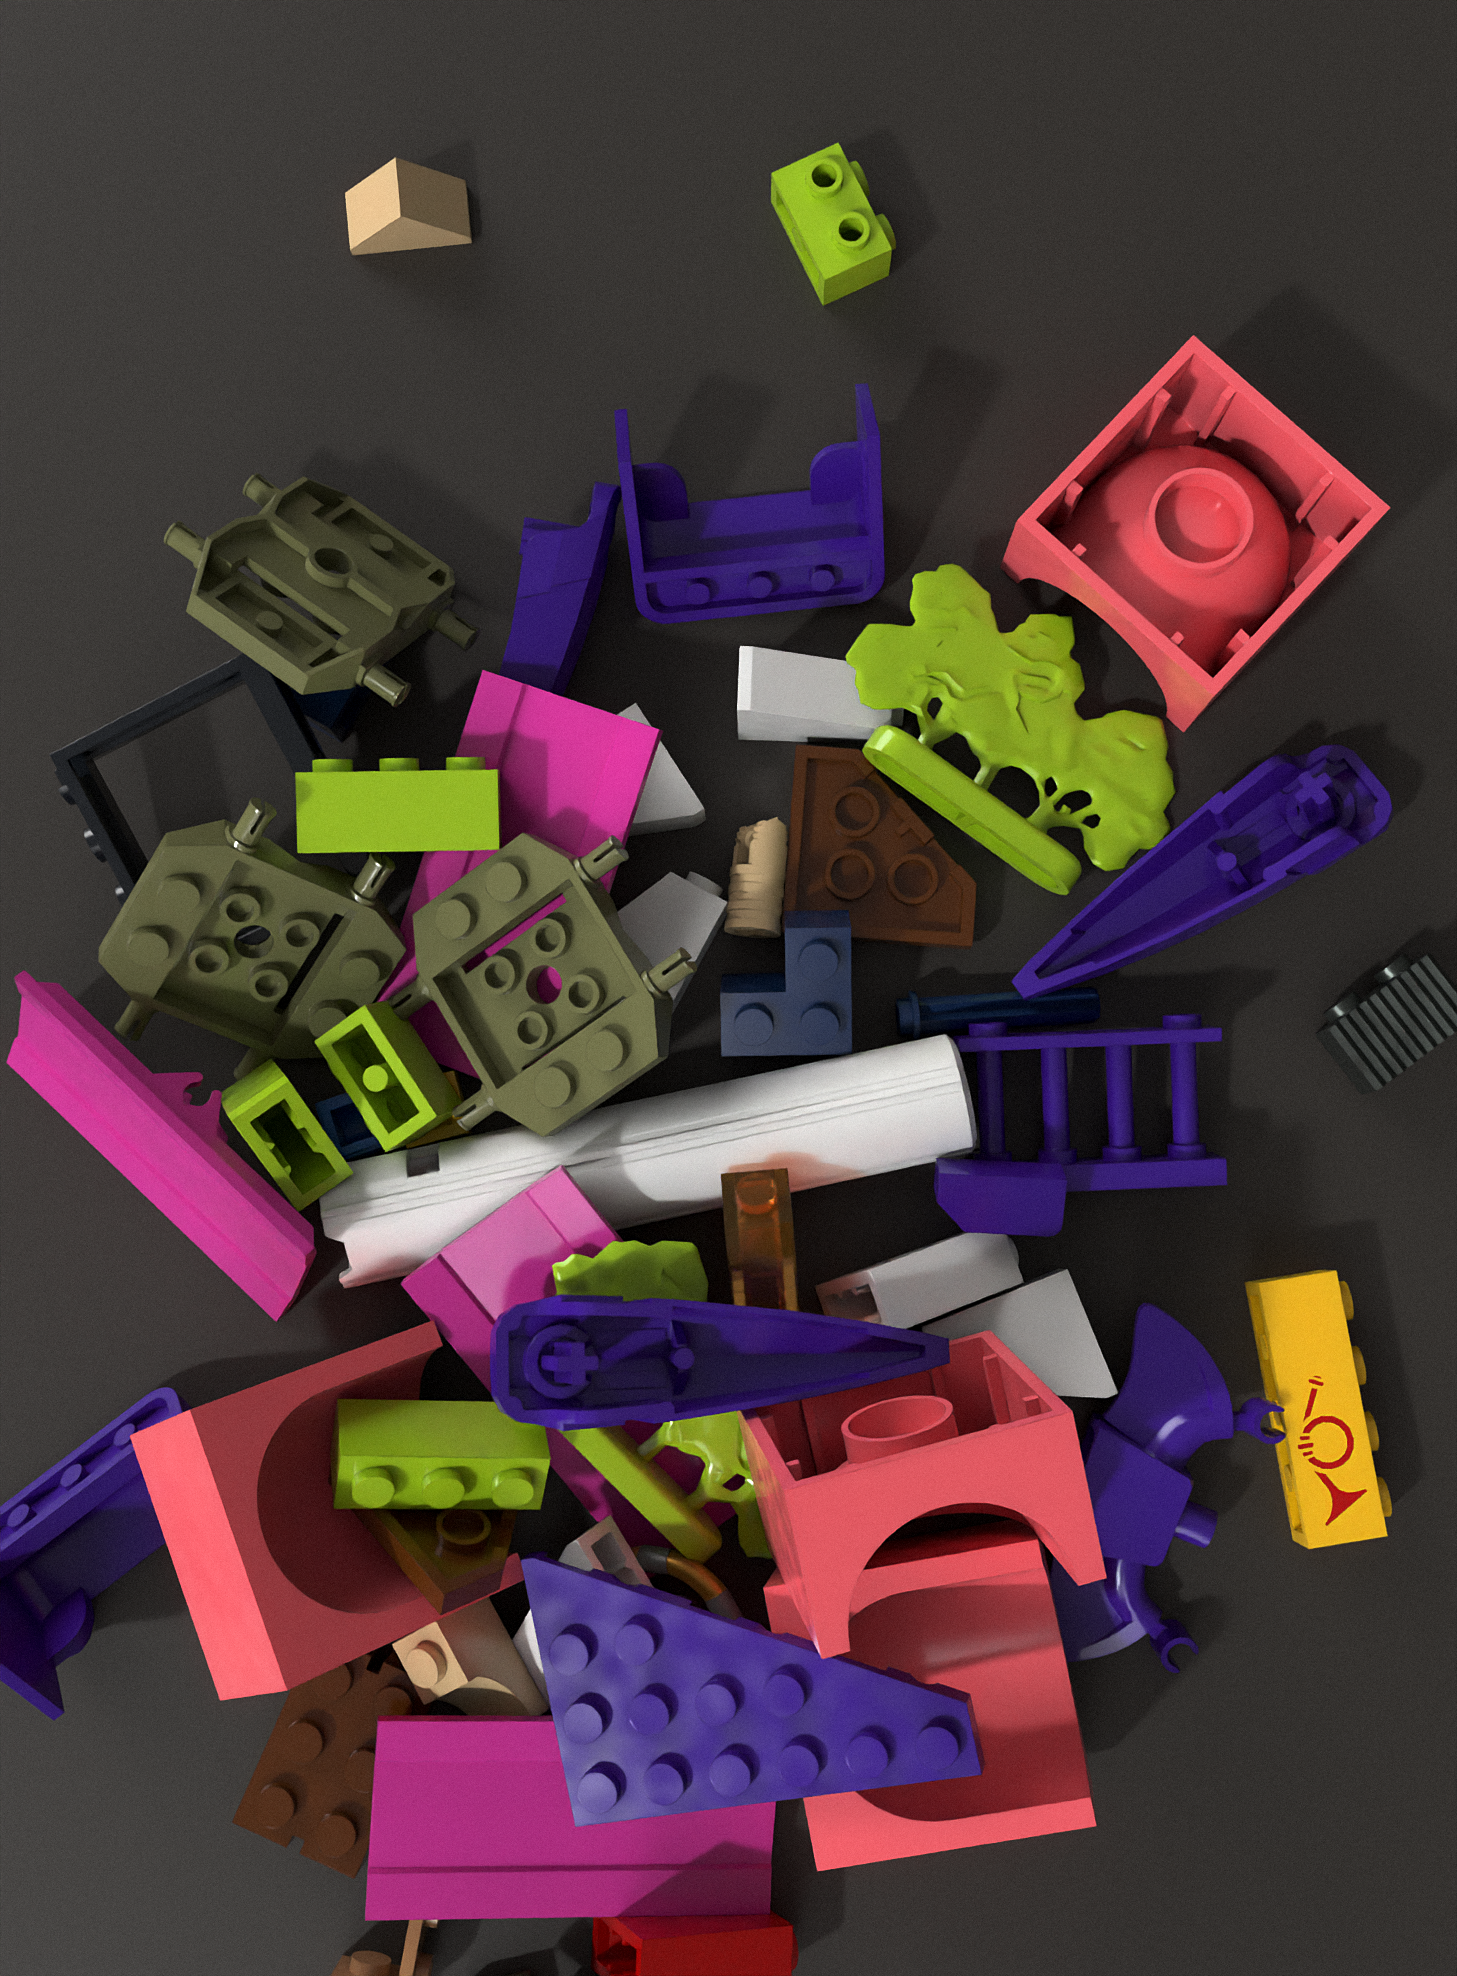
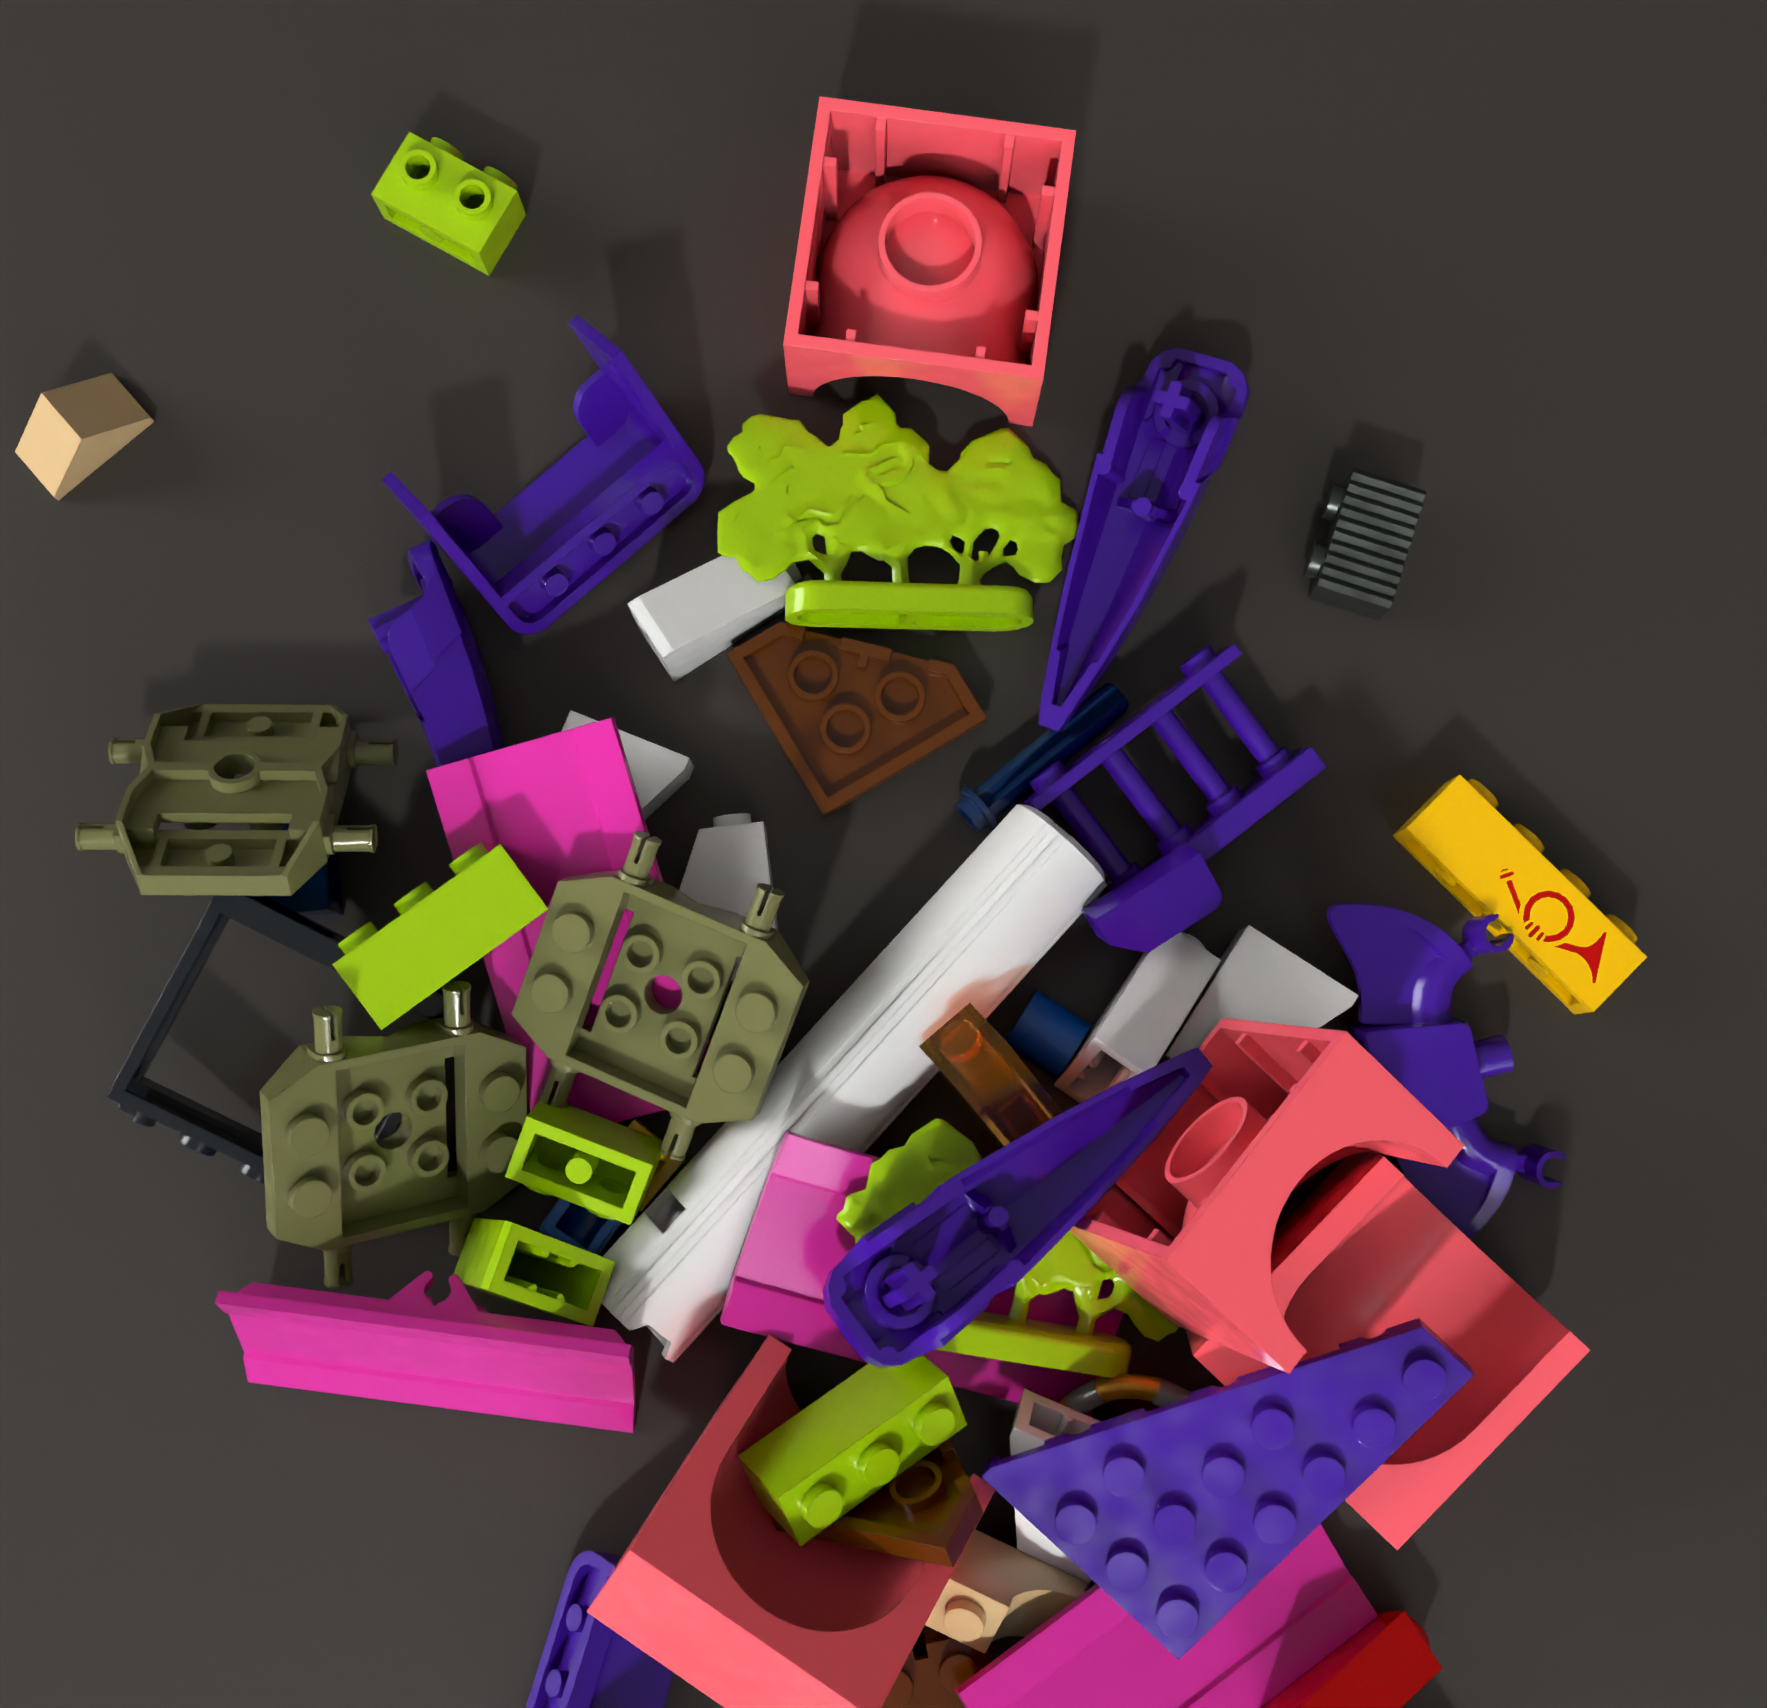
camera: 45 degrees left, 0 degrees up
(757, 880) = (773, 786): tan hinge -> none
(798, 1009) = (887, 859): dark blue brick -> none
(838, 1240) = (1047, 1034): none -> blue brick

